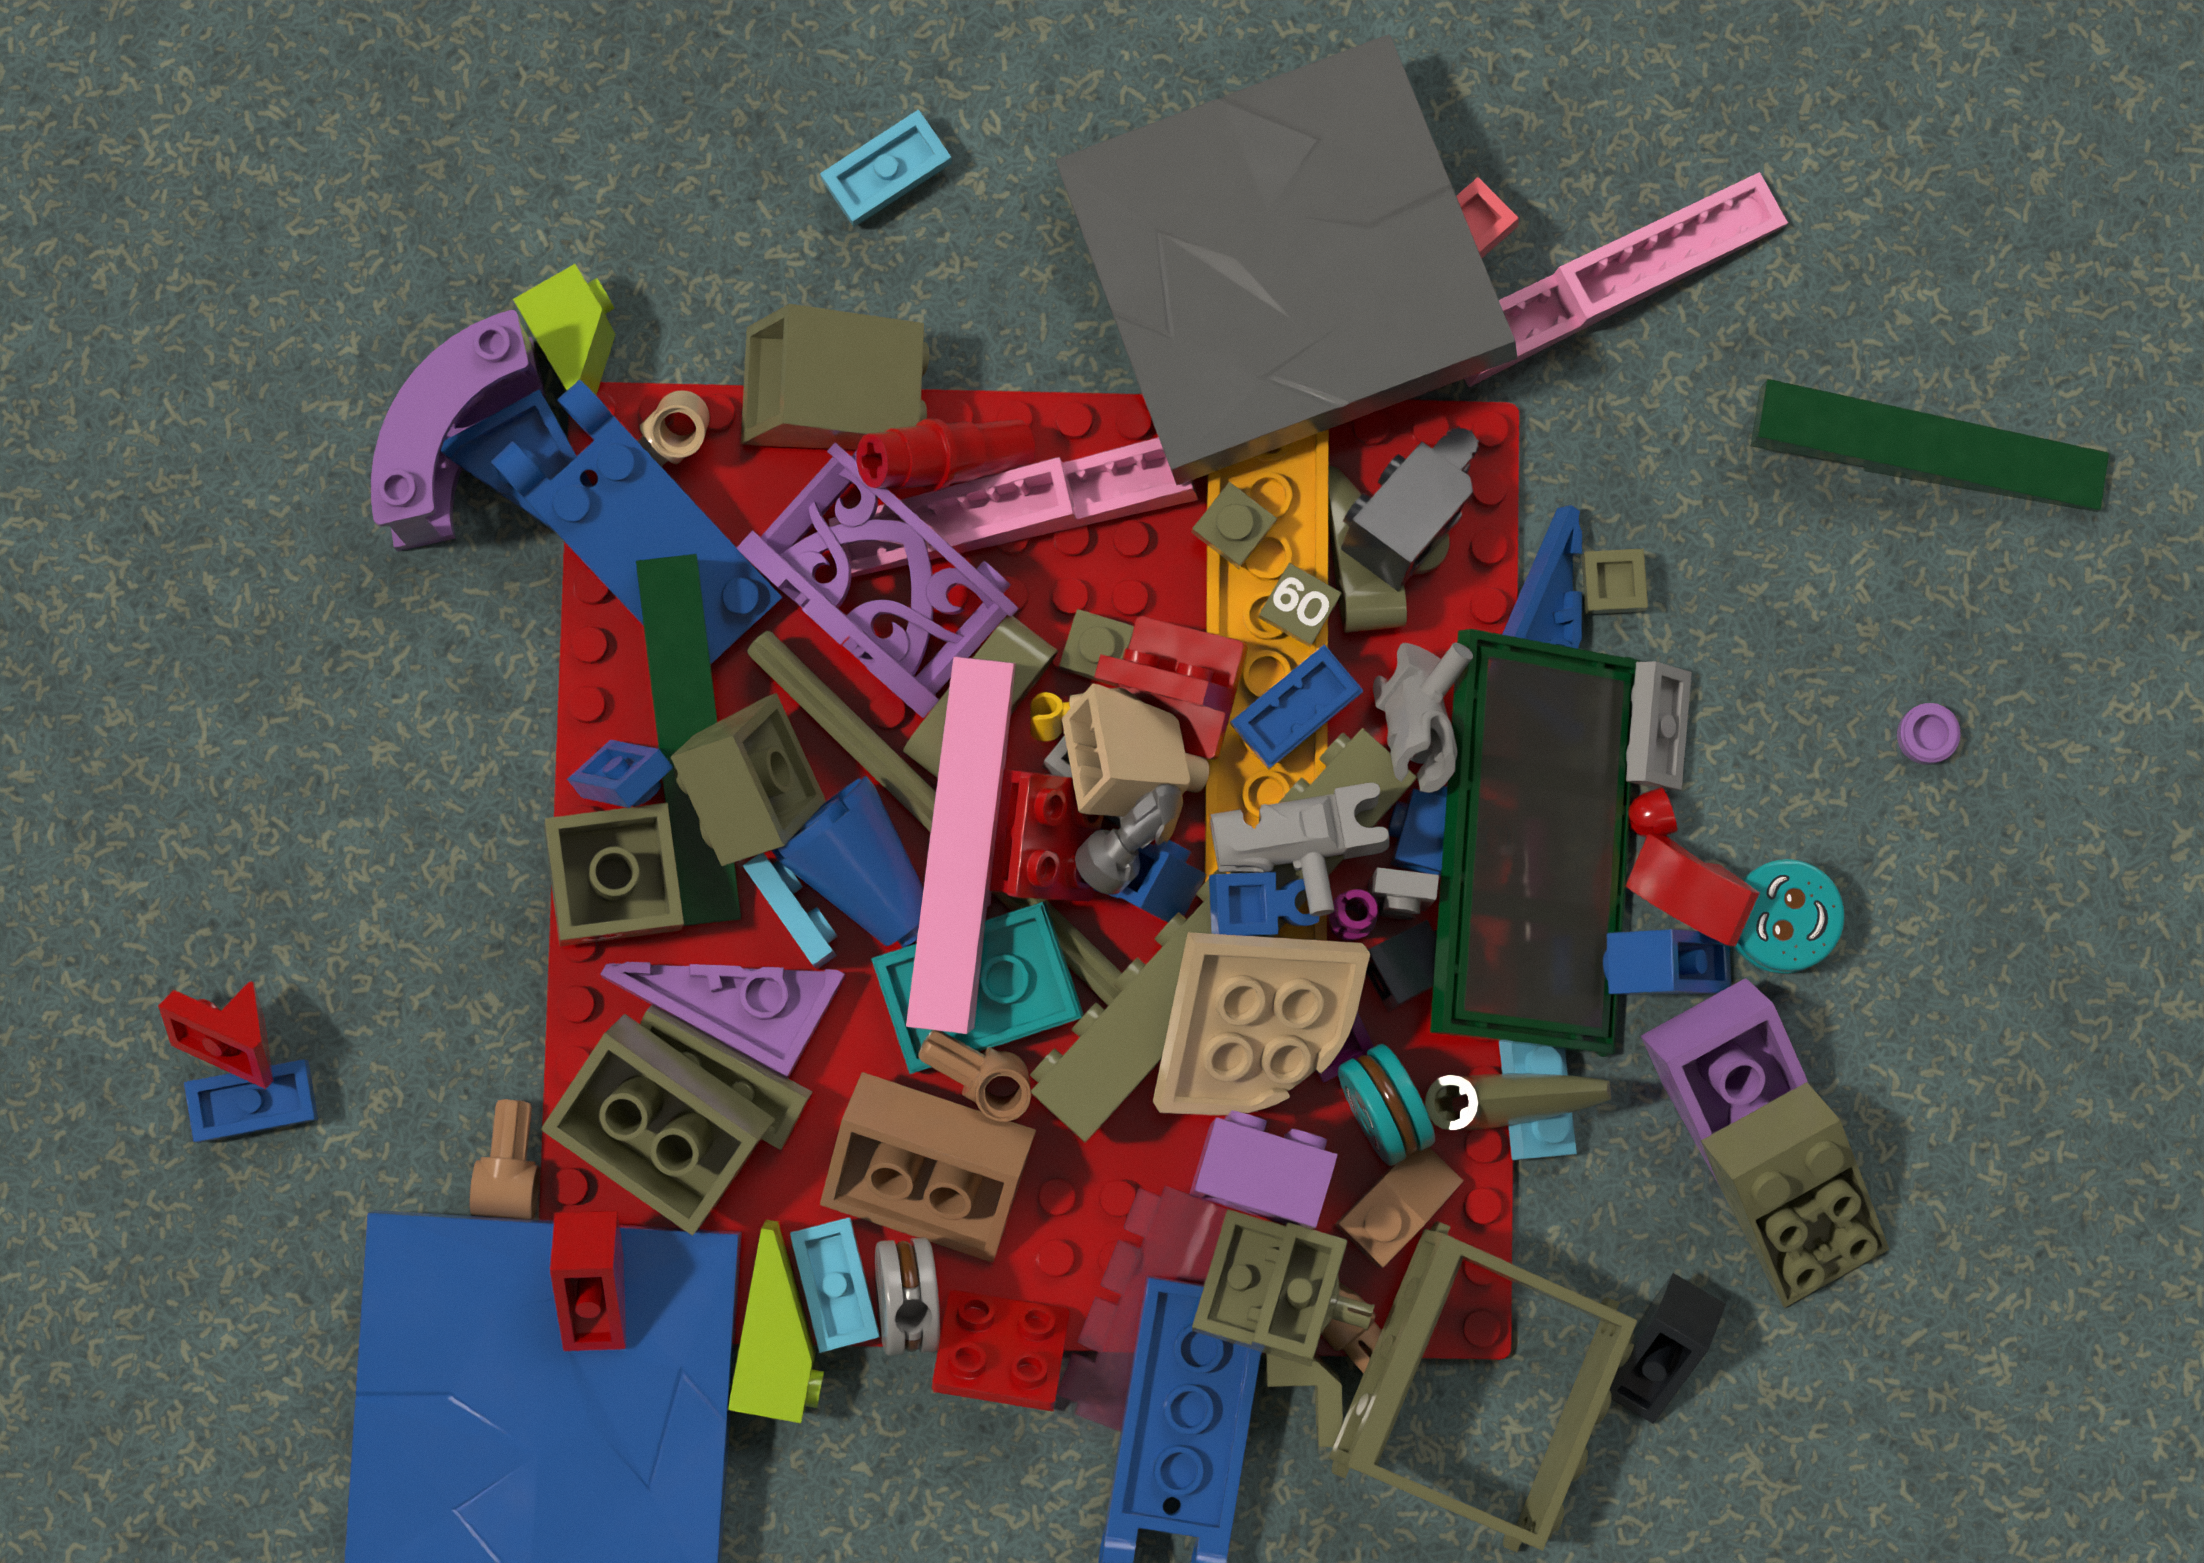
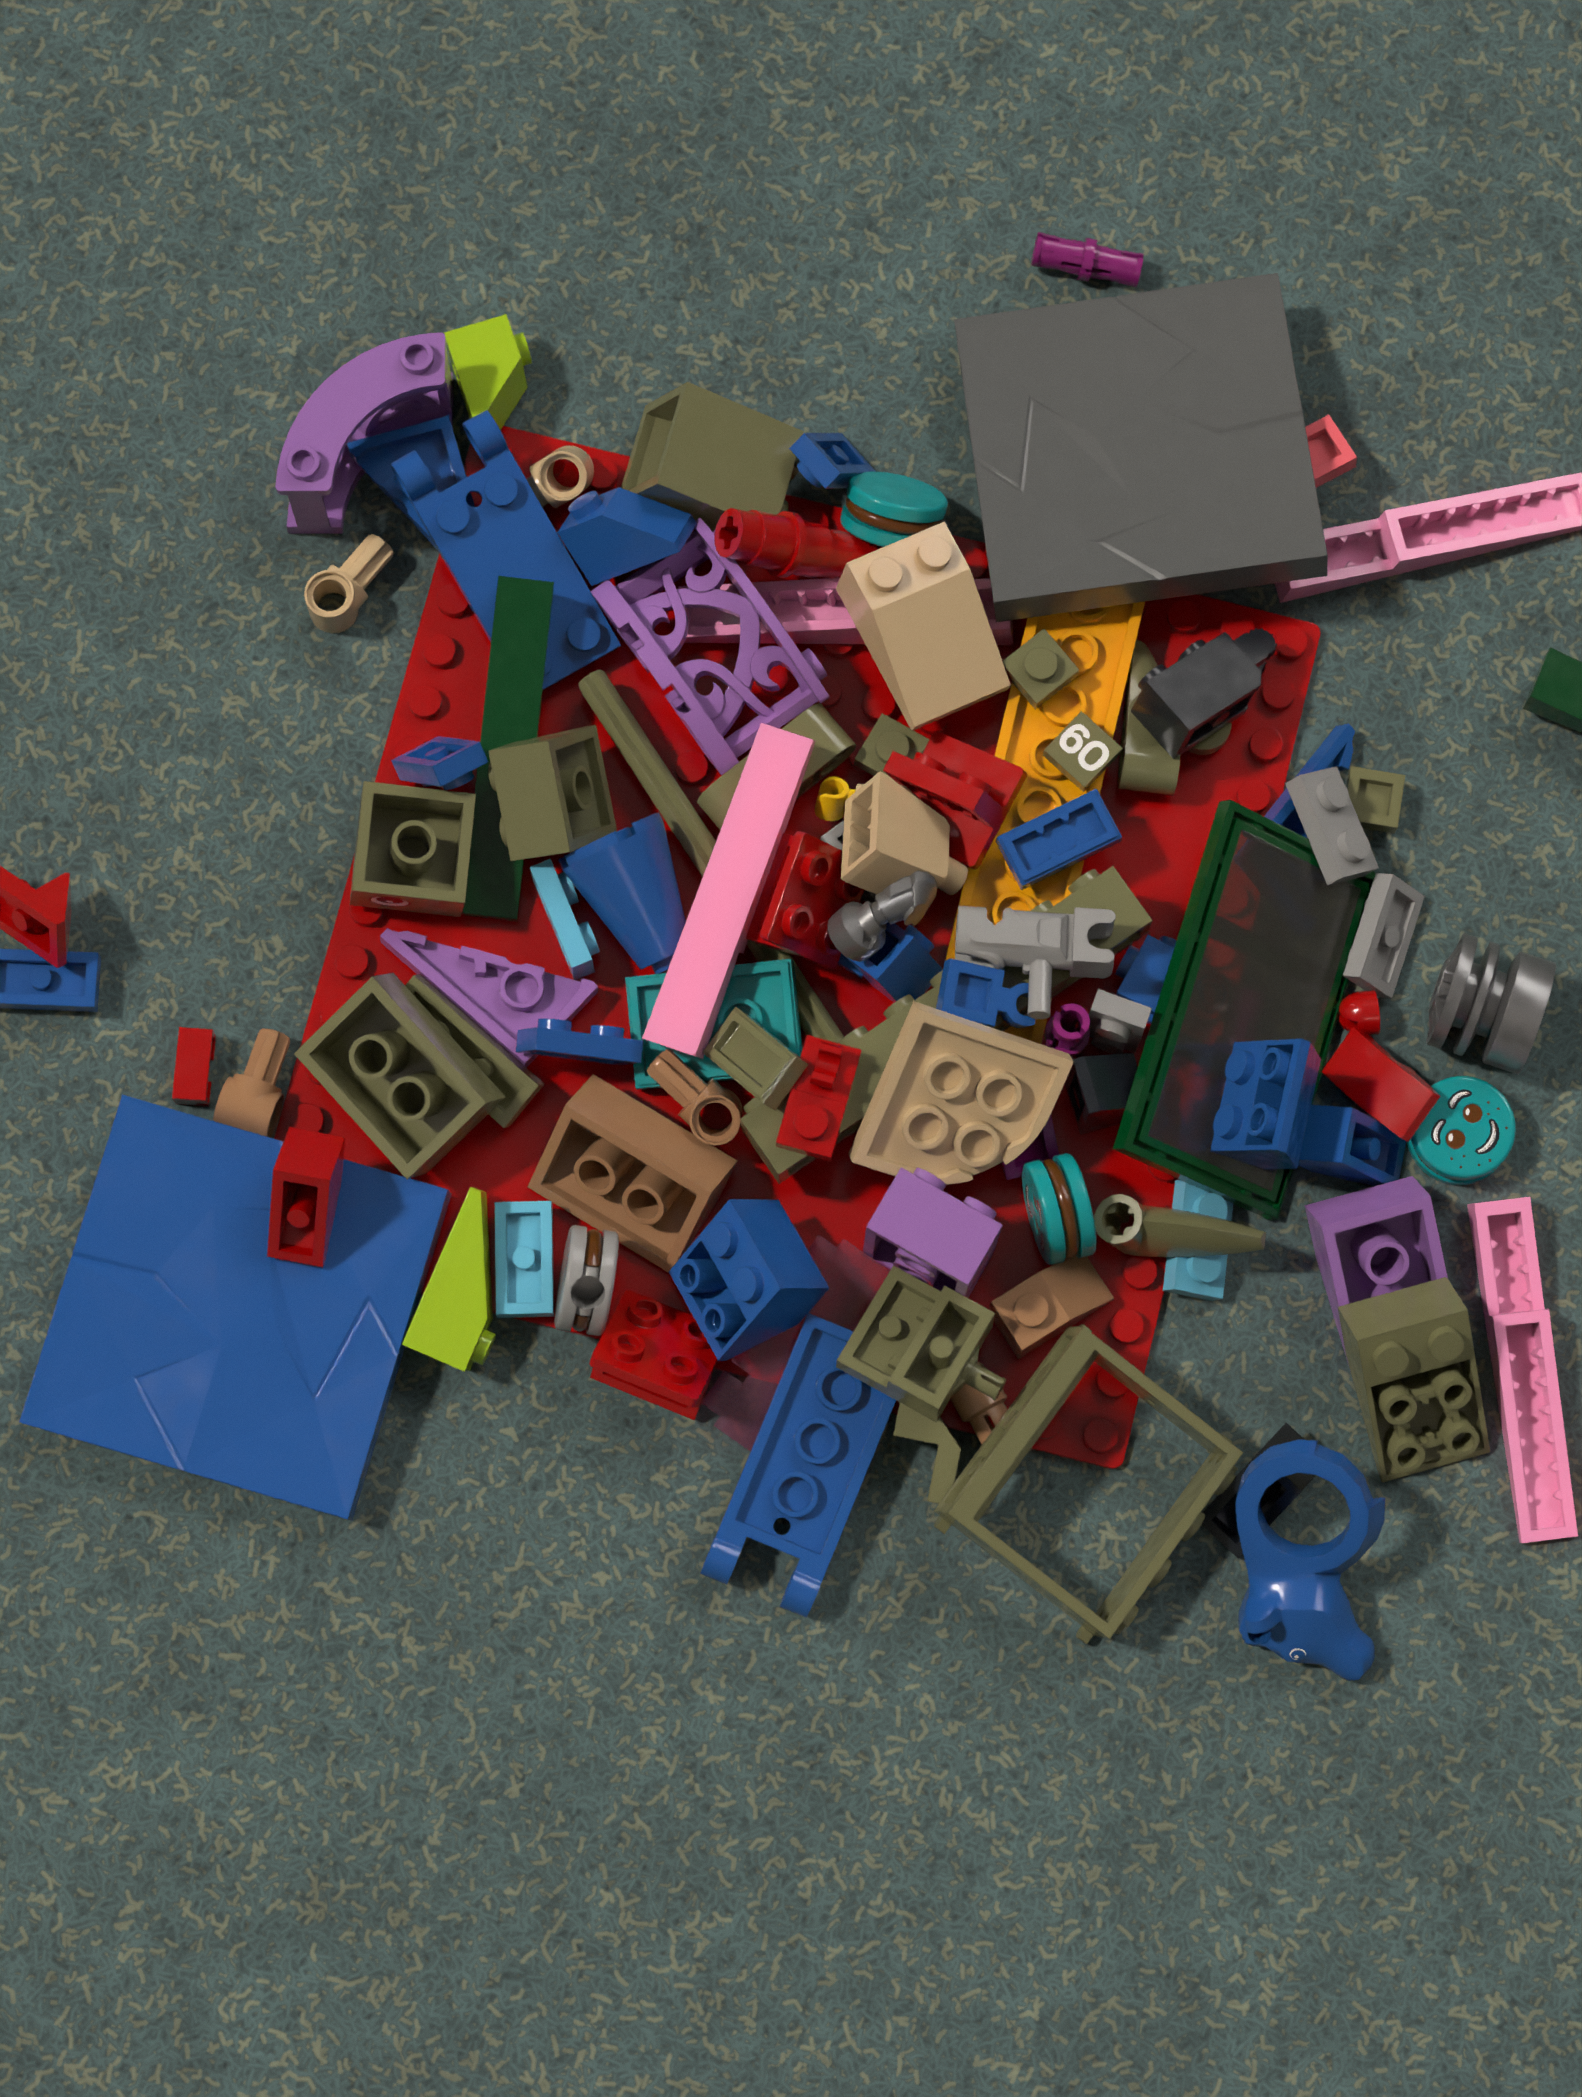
camera: 15 degrees right, 5 degrees down
(434, 1156) = (192, 1066): none -> red piece
(475, 591) = (348, 581): none -> tan axle
(757, 478) = (622, 532): none -> blue slope
(815, 1046) = (557, 1040): none -> blue plate
(886, 168) = (802, 296): medium azure plate -> none
(960, 347) = (828, 459): none -> blue plate
(1031, 1022) = (755, 1058): none -> olive tile
(1039, 386) = (890, 507): none -> teal head
(1076, 1254) = (747, 1276): none -> blue slope
(1103, 510) = (924, 625): none -> tan slope
(1109, 1051) = (819, 1098): none -> red plate
(1181, 59) = (1087, 259): none -> magenta pin
(1417, 712) = (1167, 864): light grey piece -> none
(1578, 943) = (1266, 1102): none -> blue slope
(1580, 623) = (1332, 825): none -> light grey plate
(1721, 1450) = (1296, 1589): none -> blue animal
(1787, 777) = (1490, 1003): none -> flat silver wheel
(1904, 1152) = (1523, 1368): none -> bright pink slope

